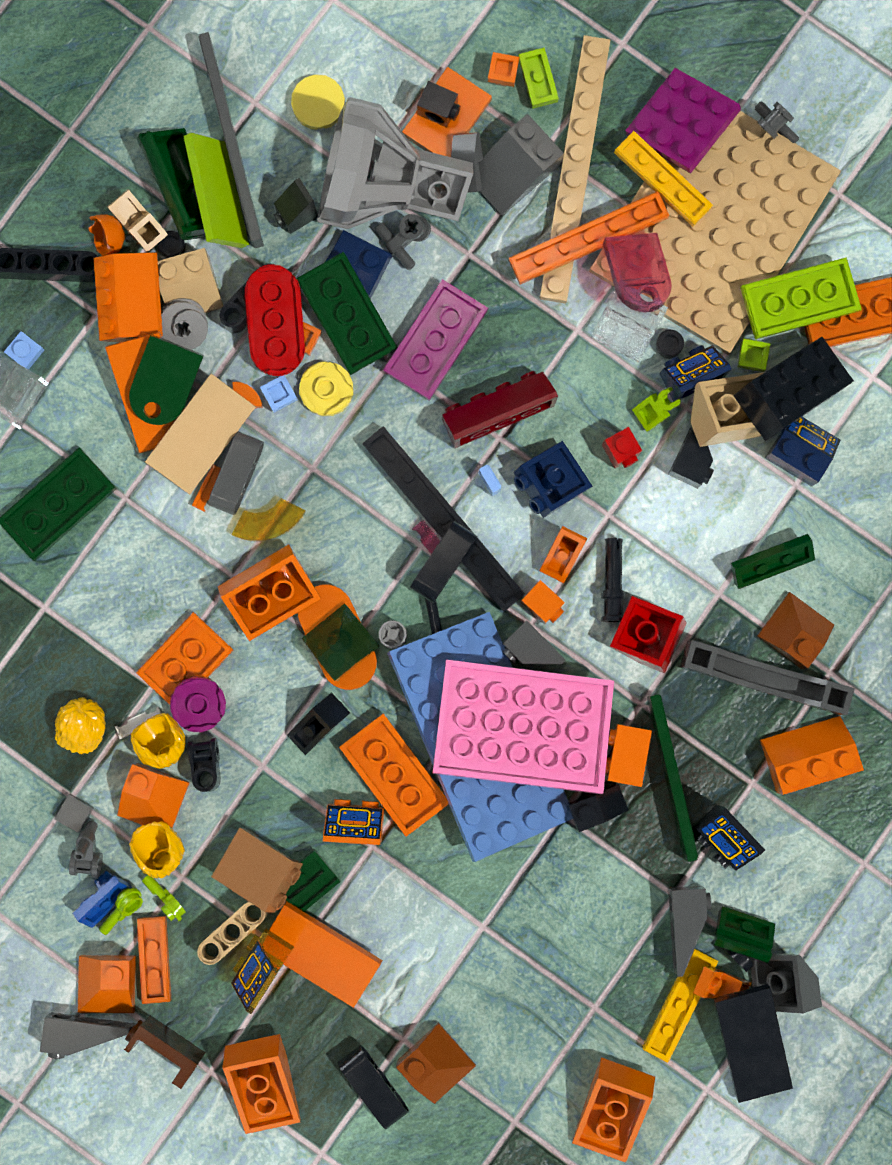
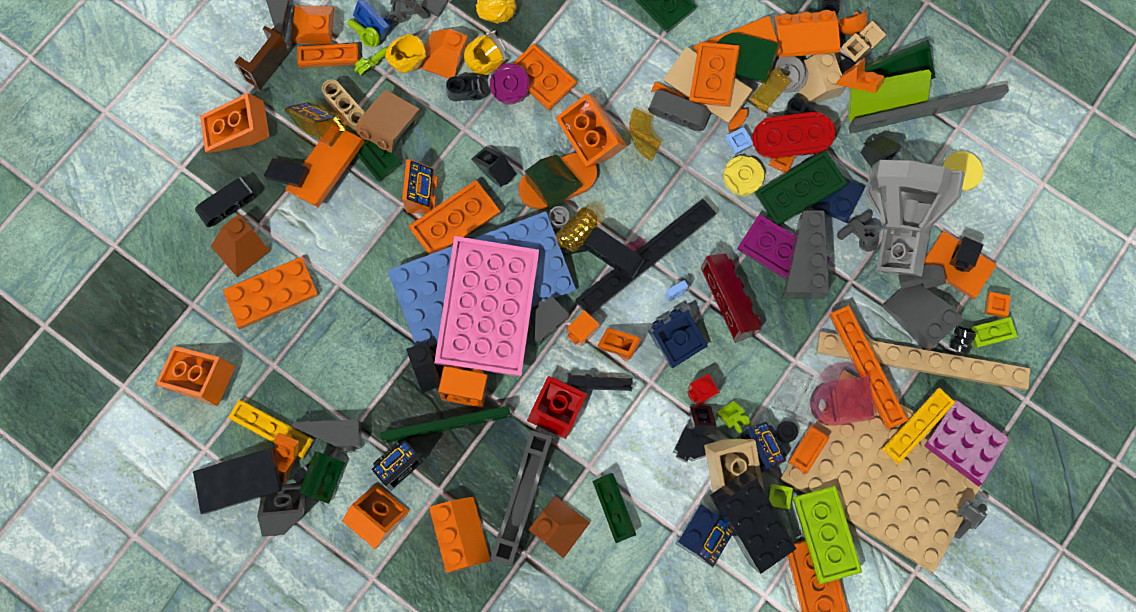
camera: 85 degrees right, 10 degrees down
(188, 423) = (714, 74): none -> orange tile
(201, 229) = (859, 79): none -> orange slope
(201, 340) = (769, 92): none -> clear yellow tile
(331, 1006) = (286, 173): none -> black tile
(410, 611) = (577, 229): none -> clear yellow piece
(450, 307) = (808, 261): none -> dark grey wedge
(498, 1018) = (270, 293): none -> orange plate
(550, 116) = (962, 339): none -> black wheel
(663, 448) = (703, 420): none -> black plate
(696, 317) = (808, 449): none -> orange tile
(791, 863) = (375, 515): none -> orange slope

